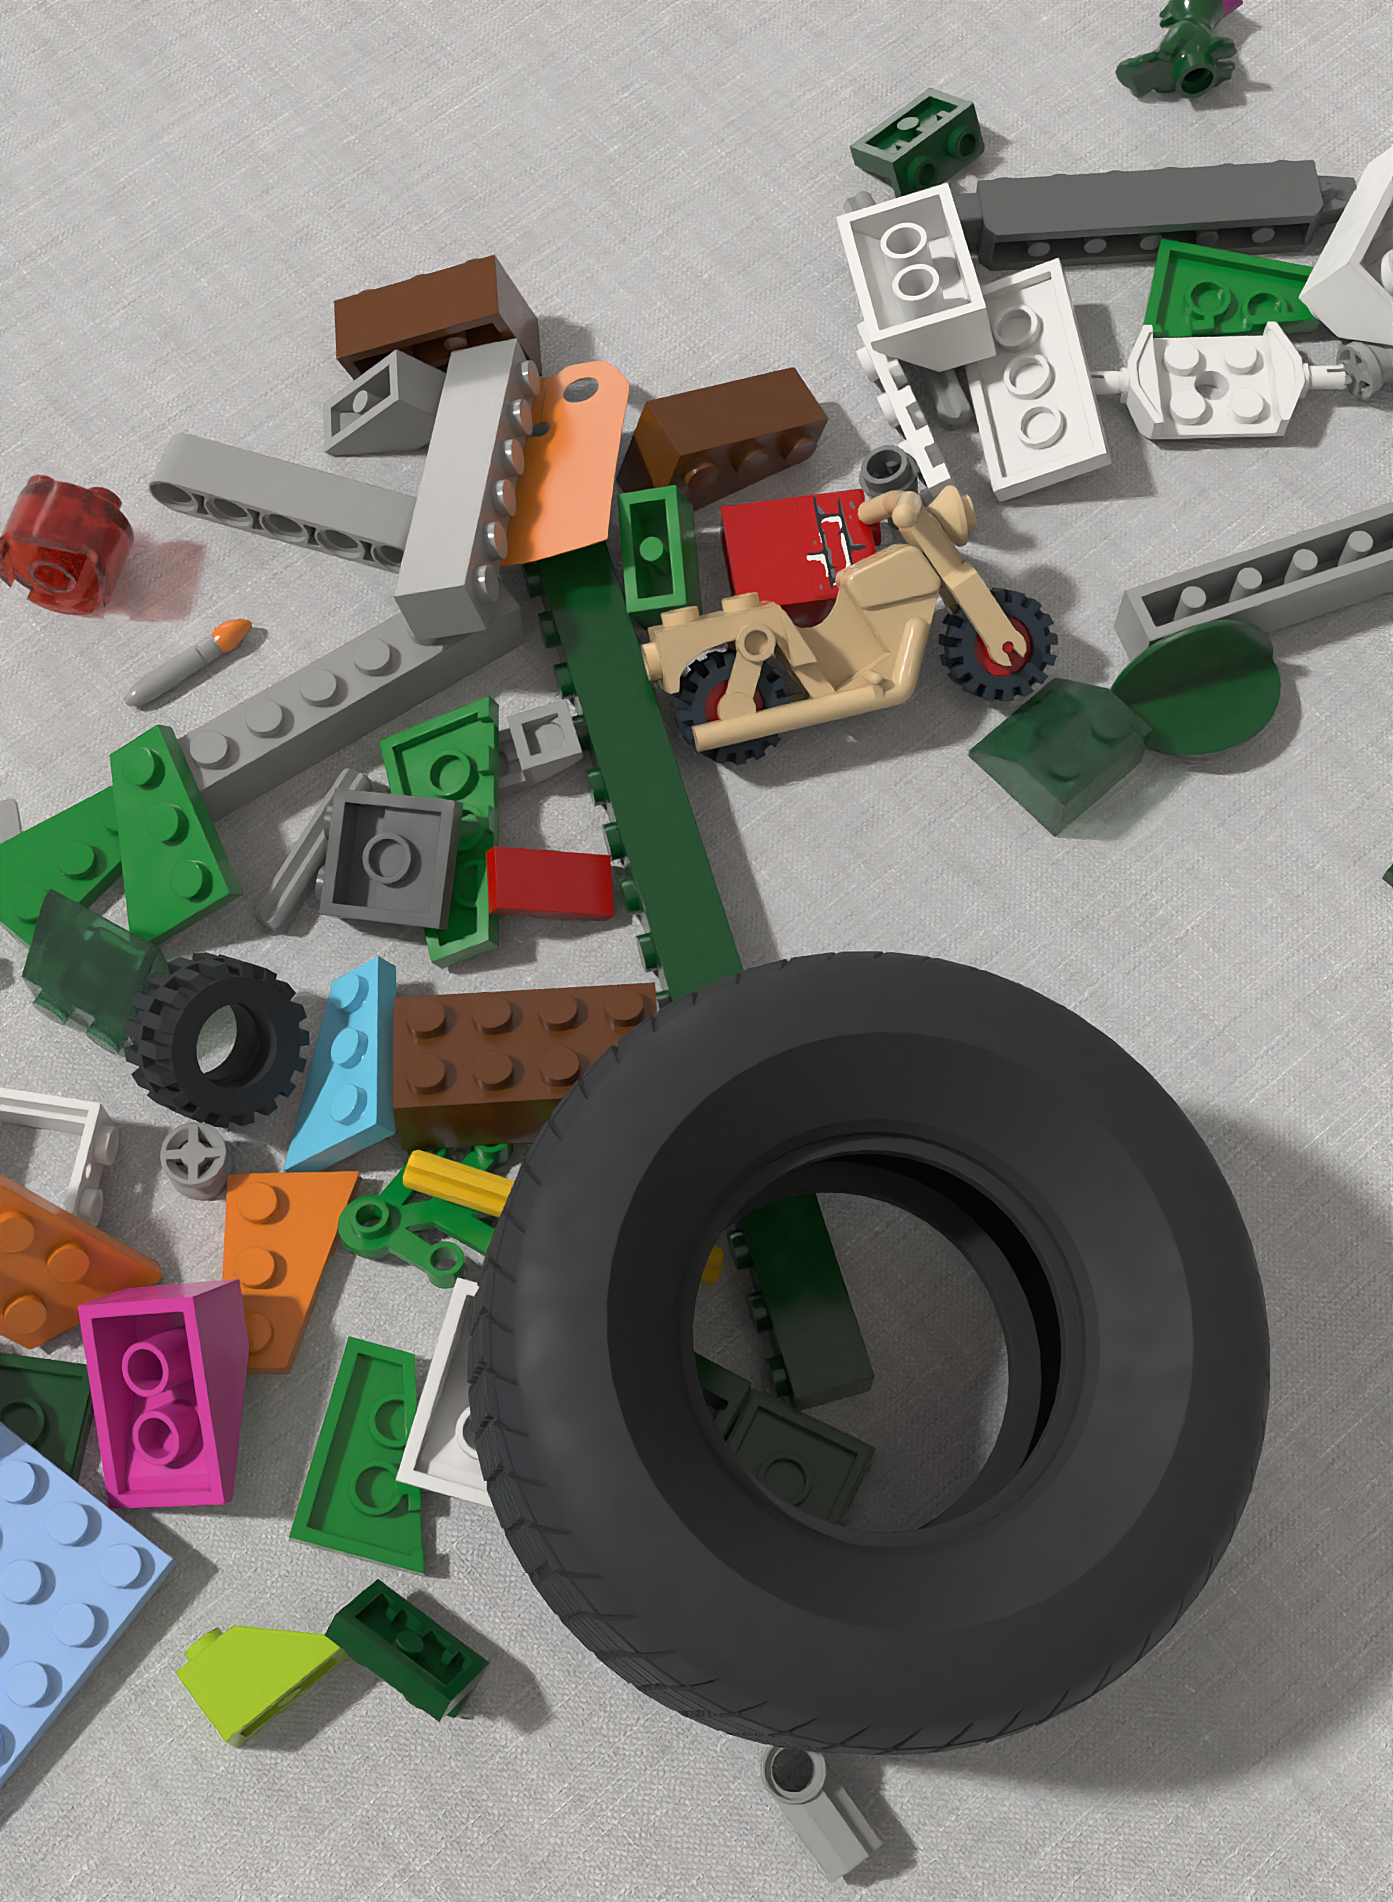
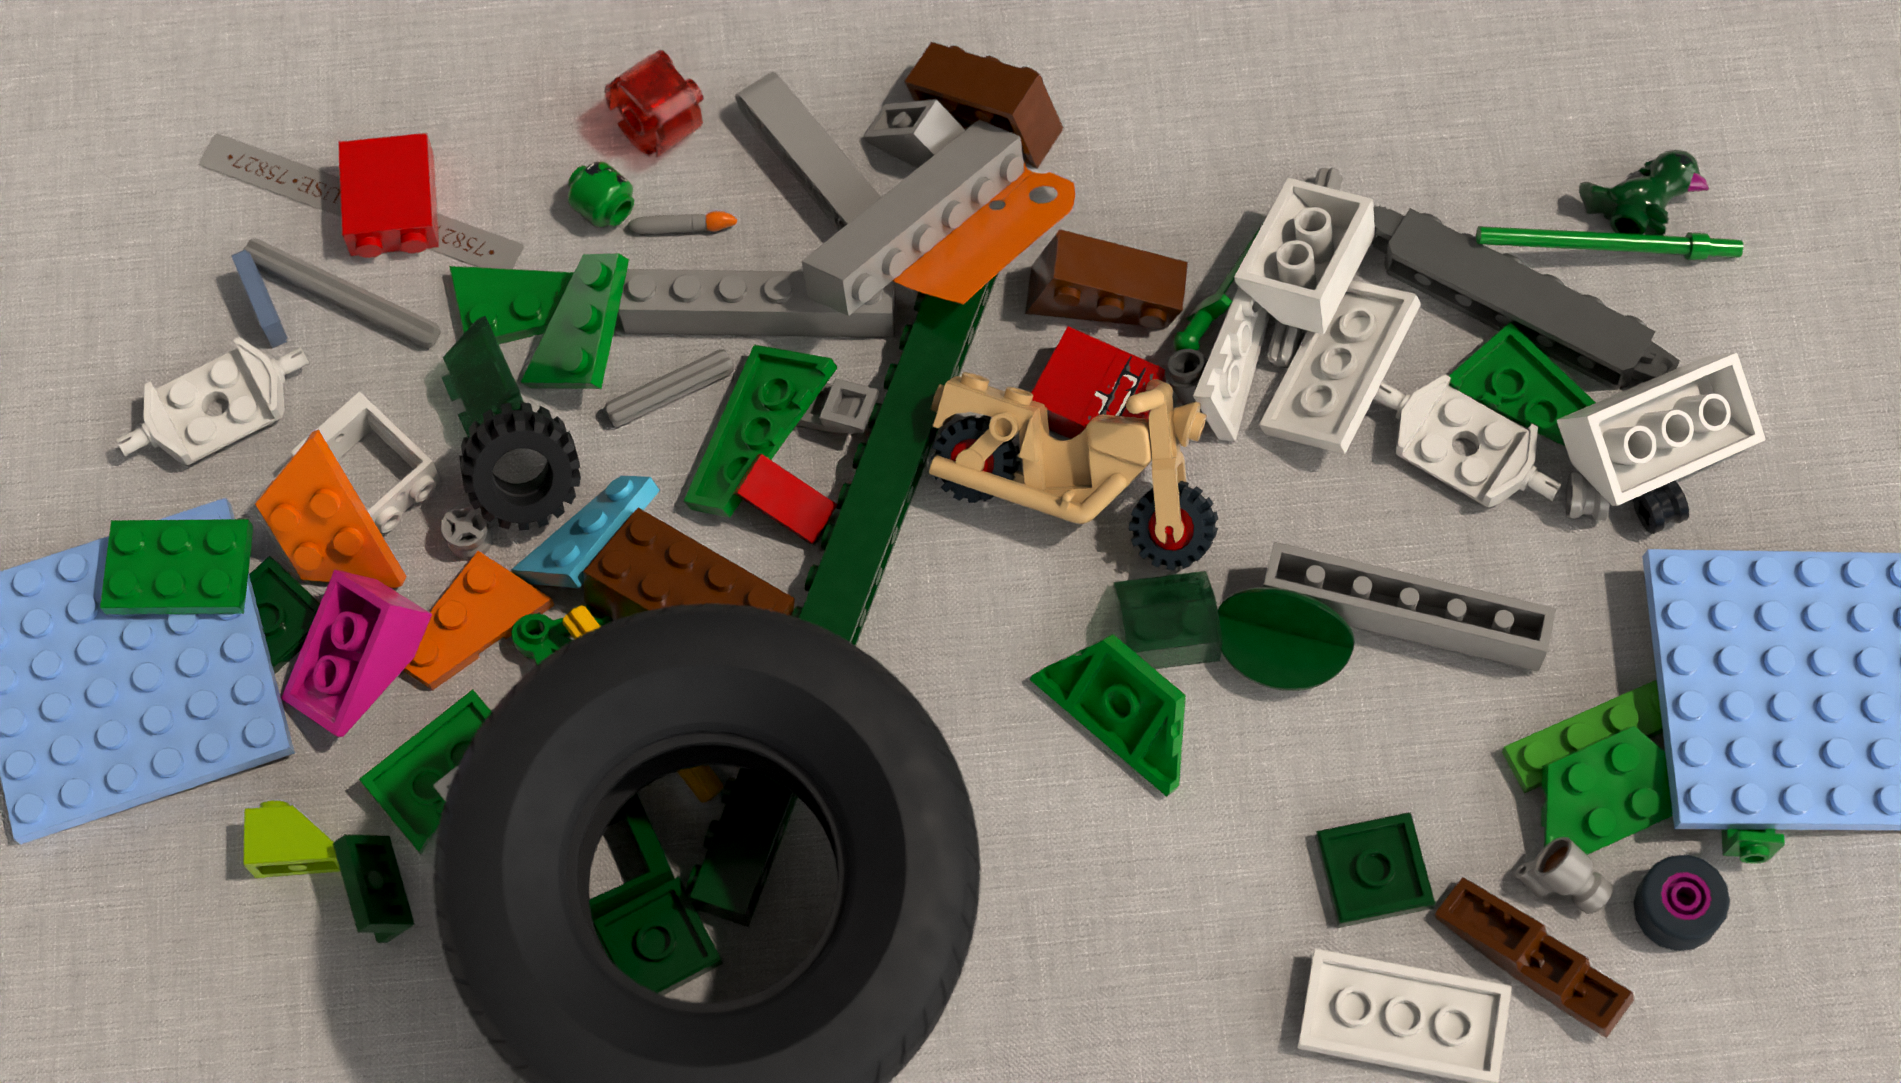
camera: 40 degrees right, 0 degrees up
(70, 684) = (600, 194): none -> green head
(389, 858) = (699, 422): dark grey plate -> none
(658, 553) = (1005, 335): green brick -> none
(856, 393) = (1208, 310): none -> green sword
(922, 142) = (1403, 159): dark green bracket -> none
(1092, 866) = (1123, 706): none -> green wing
(1265, 69) = (1693, 246): none -> green bar

